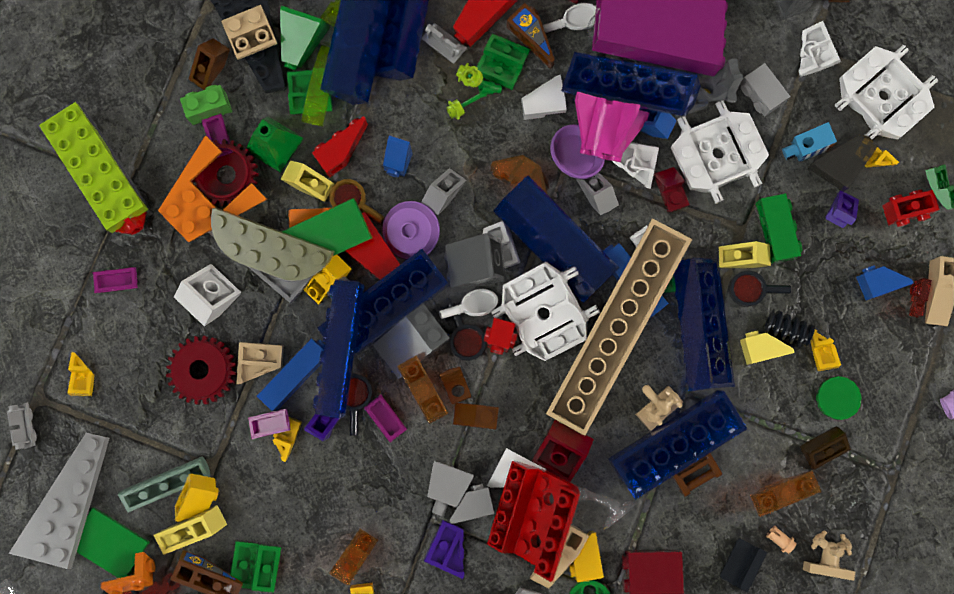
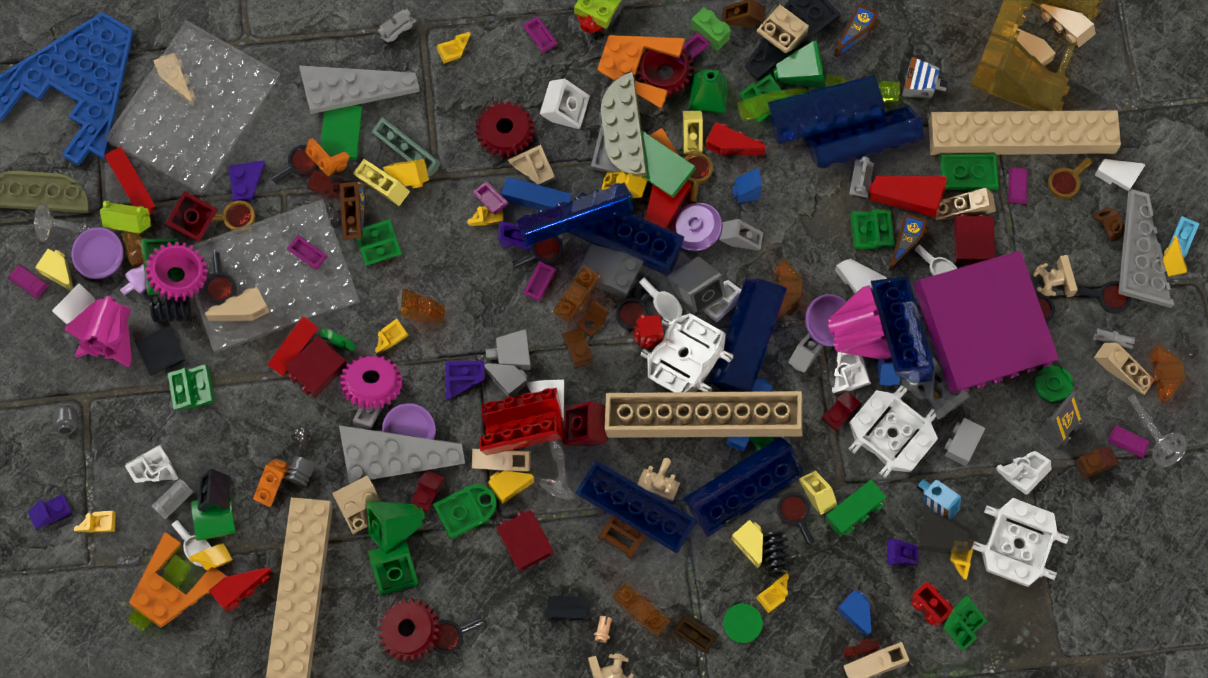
camera: 60 degrees right, 10 degrees down
(471, 77) = (839, 207): lime plant -> none

